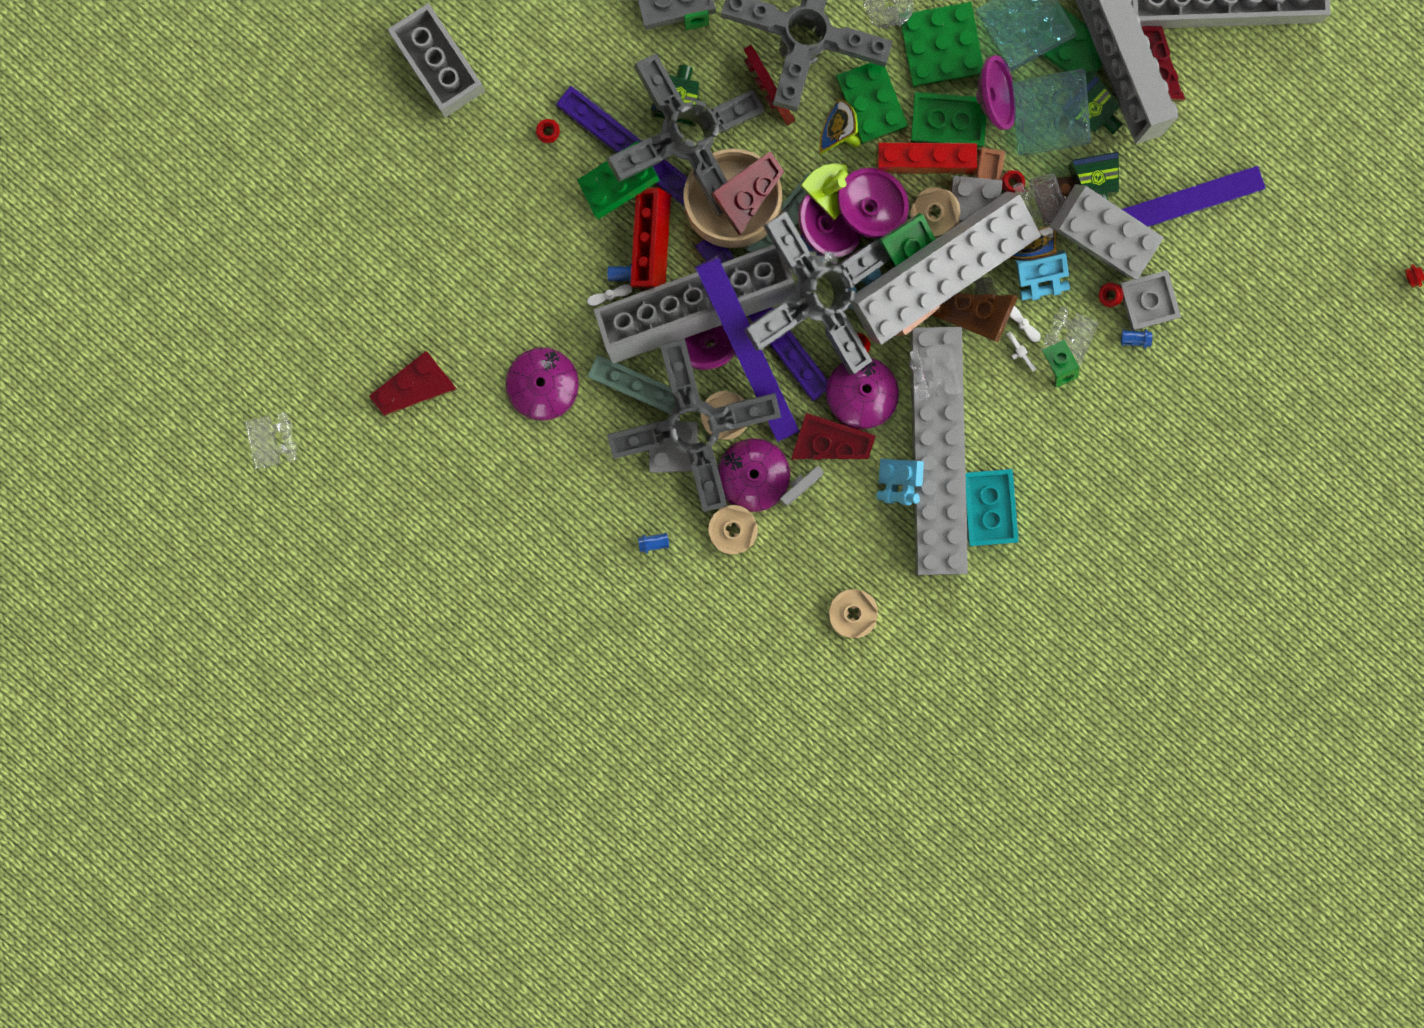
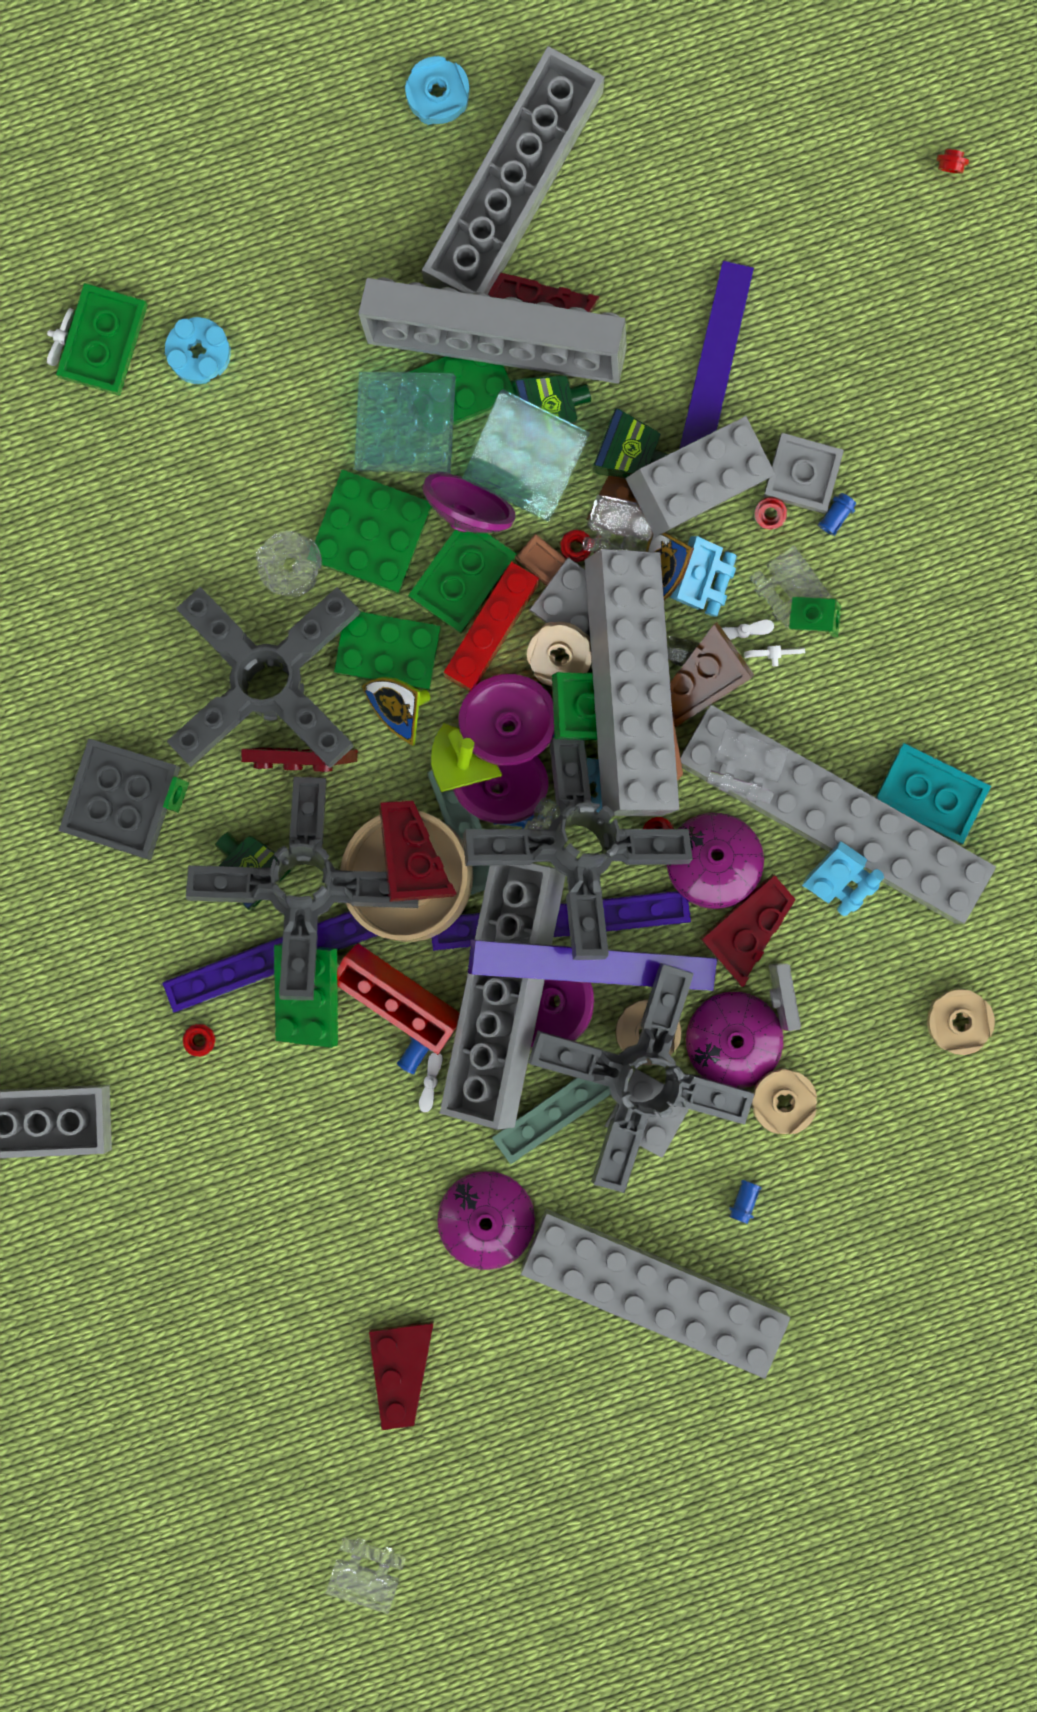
camera: 65 degrees left, 0 degrees up
(560, 517) = (655, 1293): none -> light grey brick

